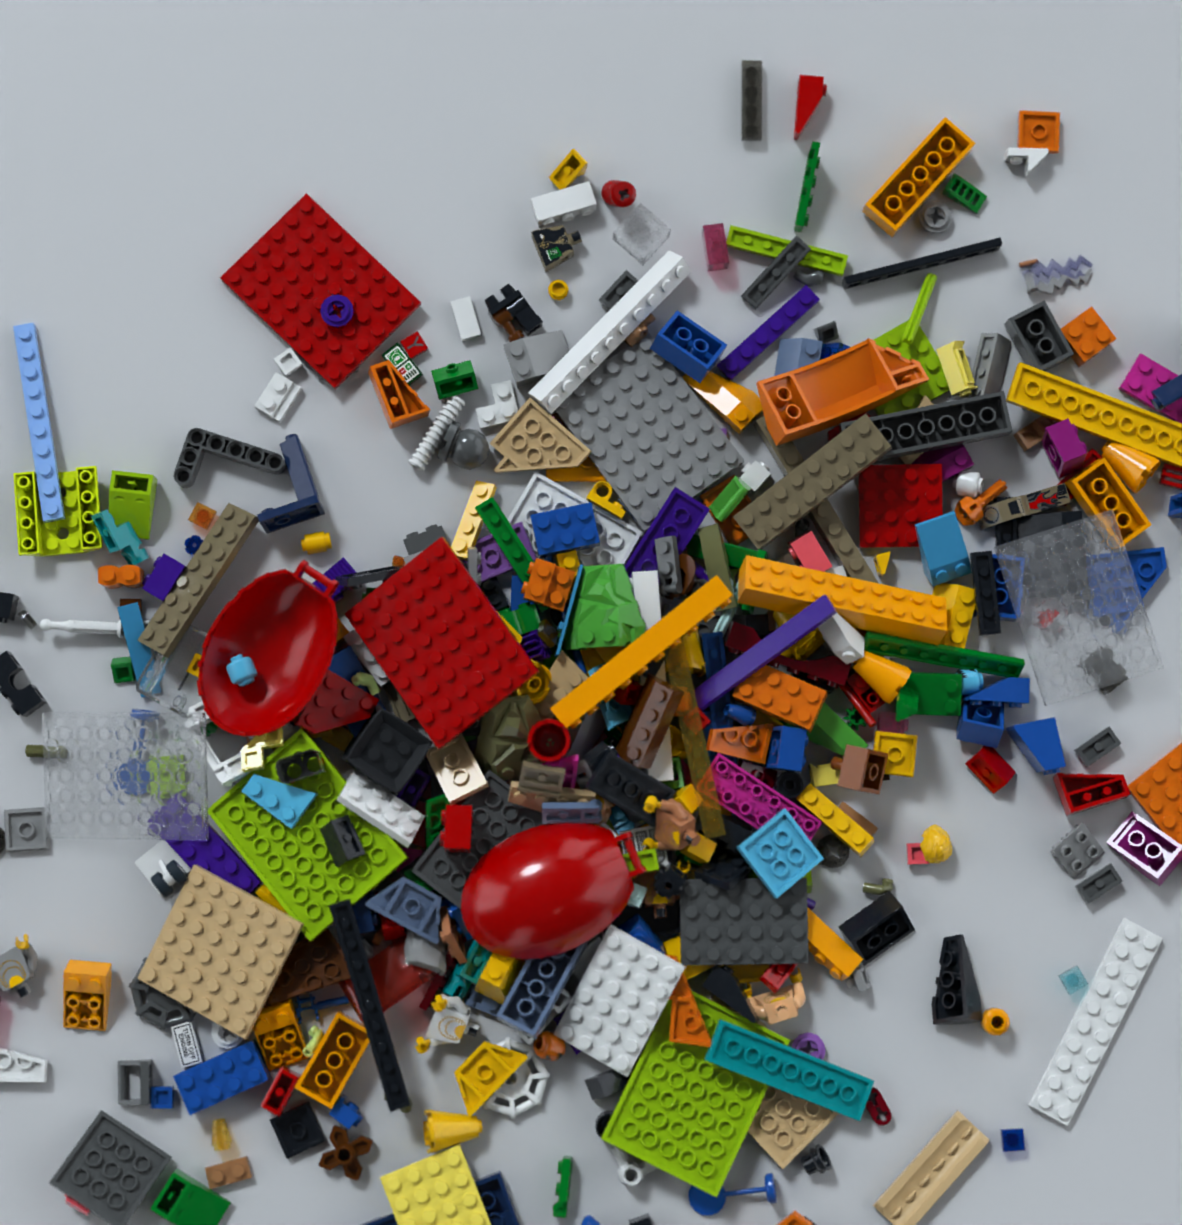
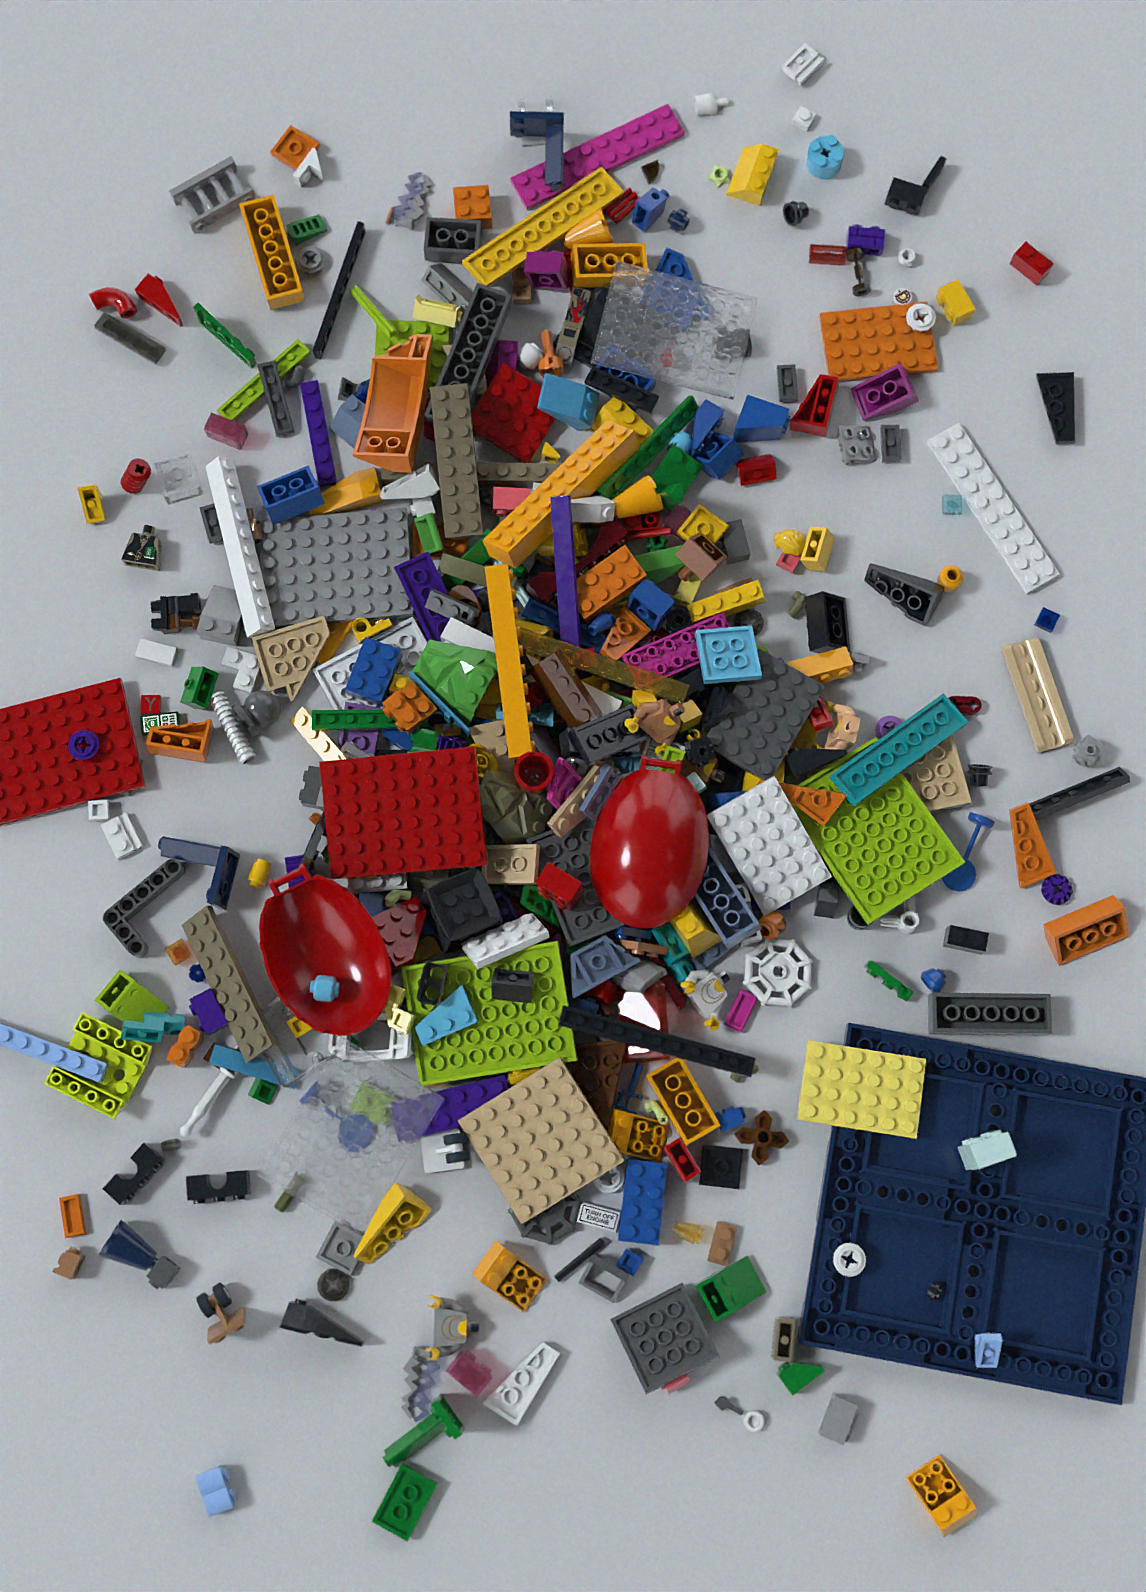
camera: 55 degrees left, 5 degrees down
(78, 858) = (394, 1216): none -> yellow wedge
(139, 1050) = (579, 1259): none -> black bar
(447, 1063) = (740, 1010): none -> dark pink tile
(449, 1129) = (790, 1044): yellow cone -> none
(485, 1072) = (763, 987): yellow wing -> none
(541, 779) = (560, 796): dark tan plate -> none
(558, 289) = (180, 569): yellow plate -> none
(564, 204) = (116, 524): white brick -> none
(768, 457) = (413, 485): none -> white slope
(781, 62) = (116, 298): none -> red cylinder
(902, 791) = (735, 543): none -> dark grey brick
(944, 875) = (817, 548): none -> yellow brick
(945, 65) = (204, 180): none -> light grey fence

